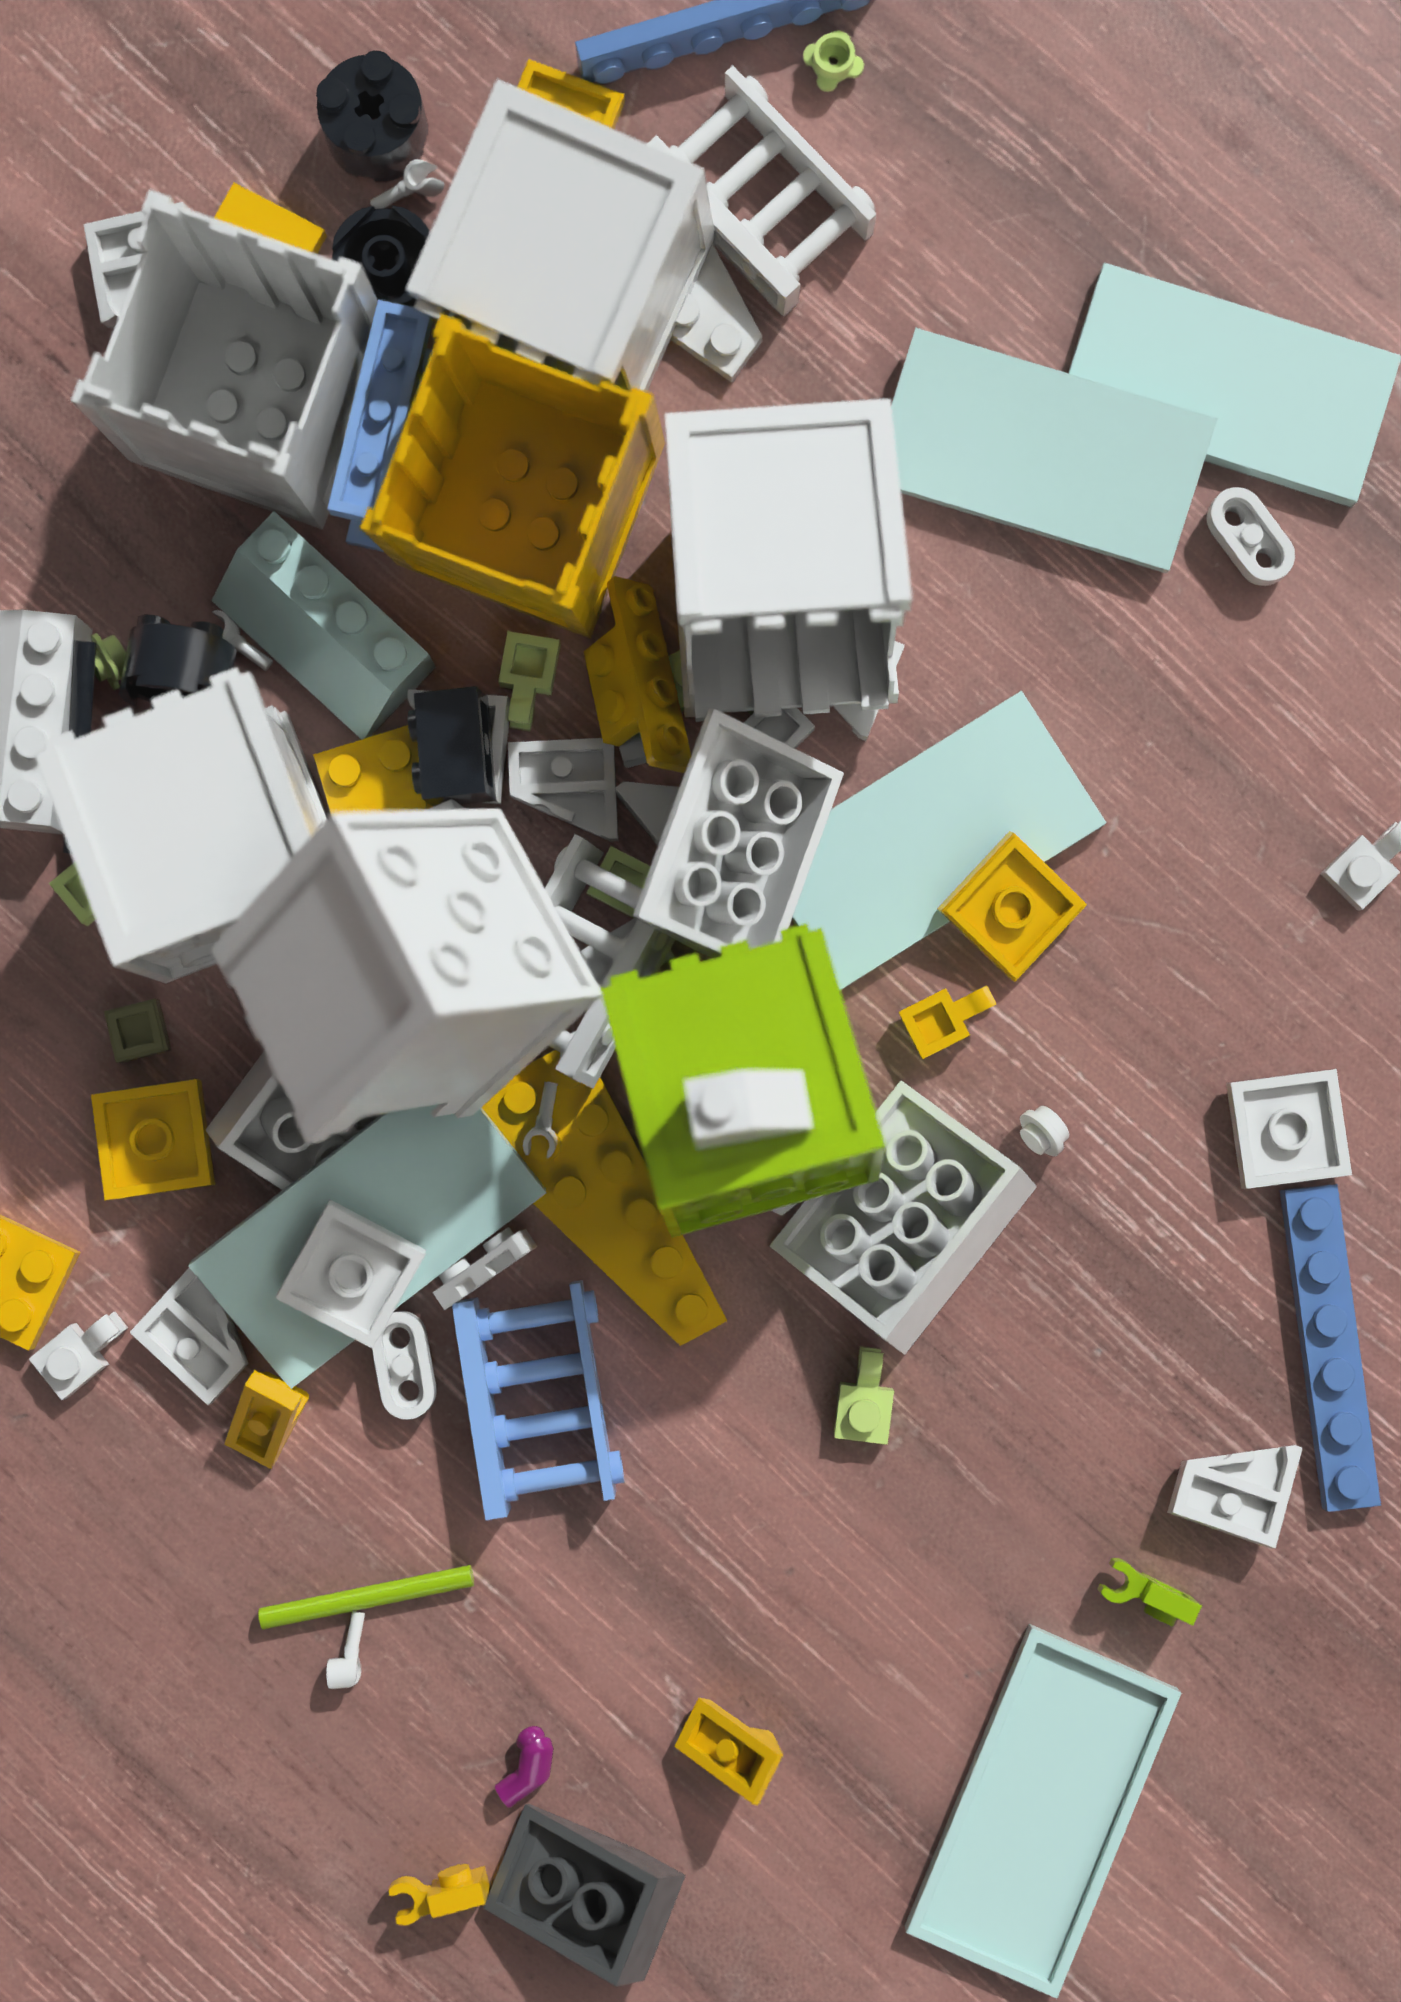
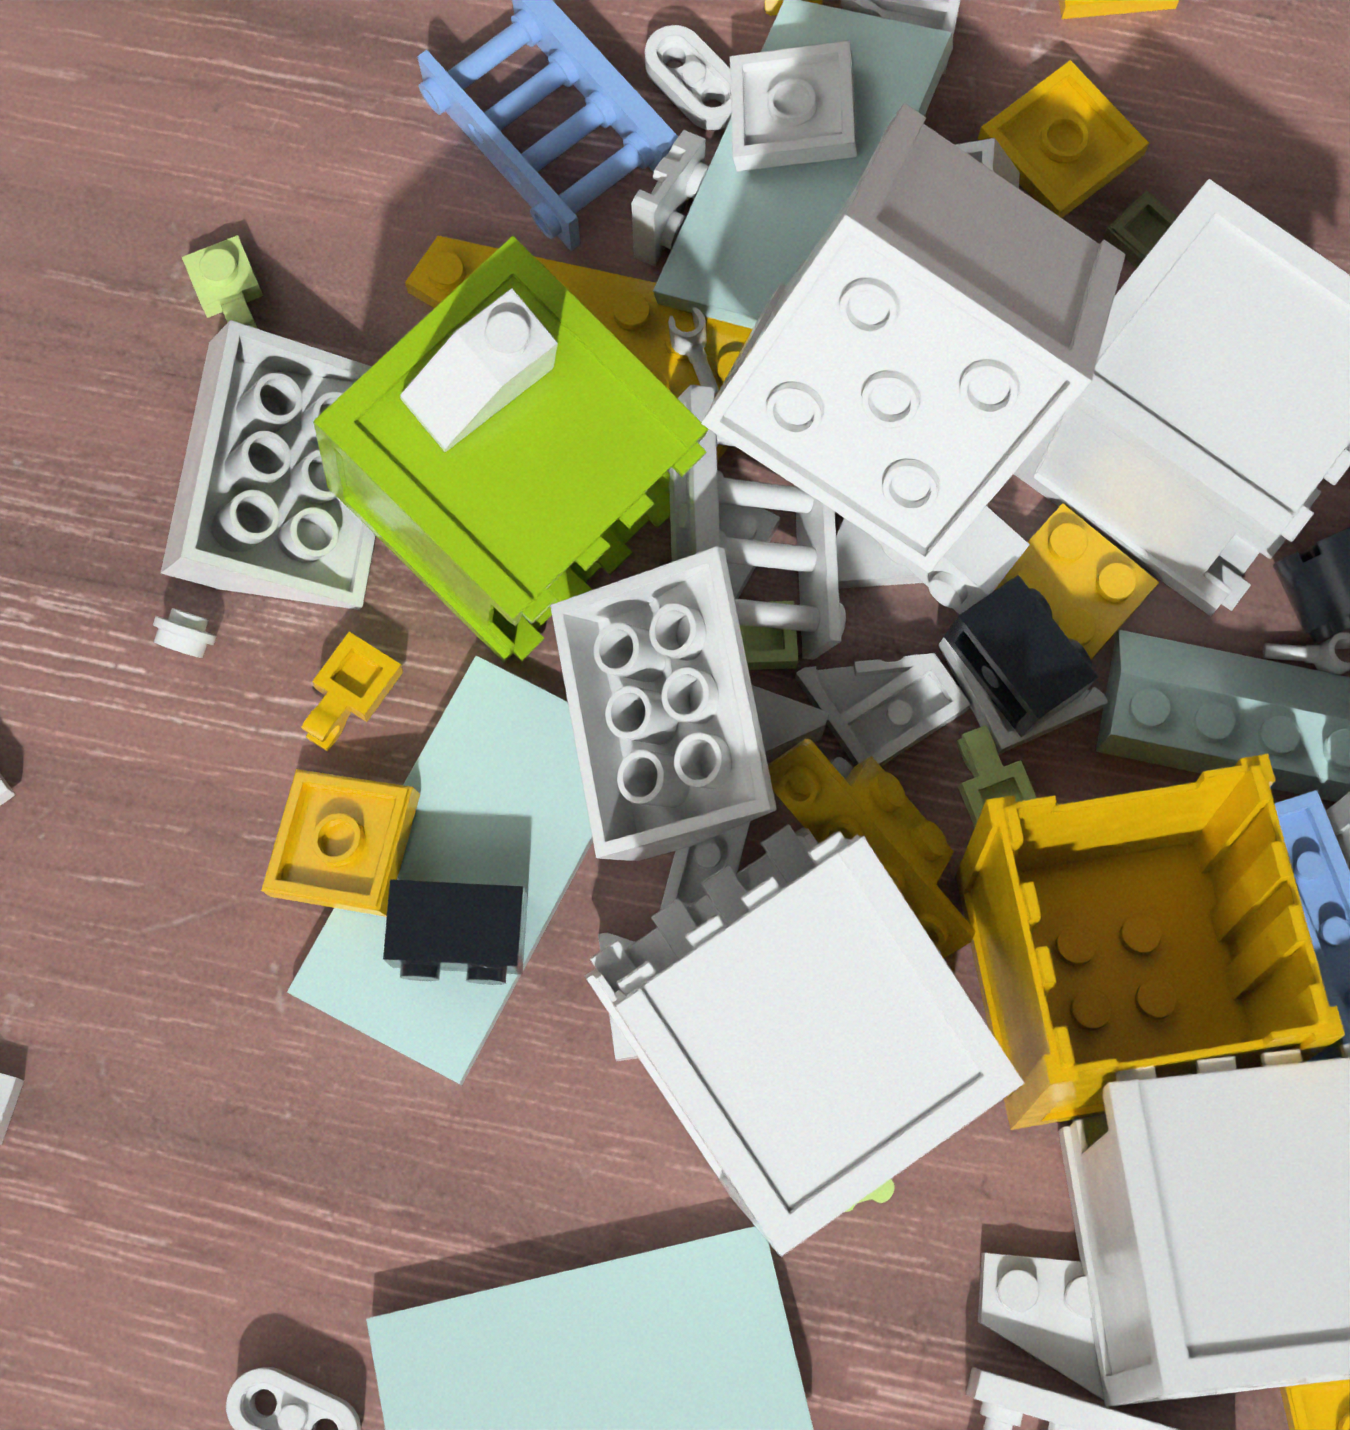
camera: 150 degrees right, 10 degrees down
(967, 788) = (455, 930): none -> black brick

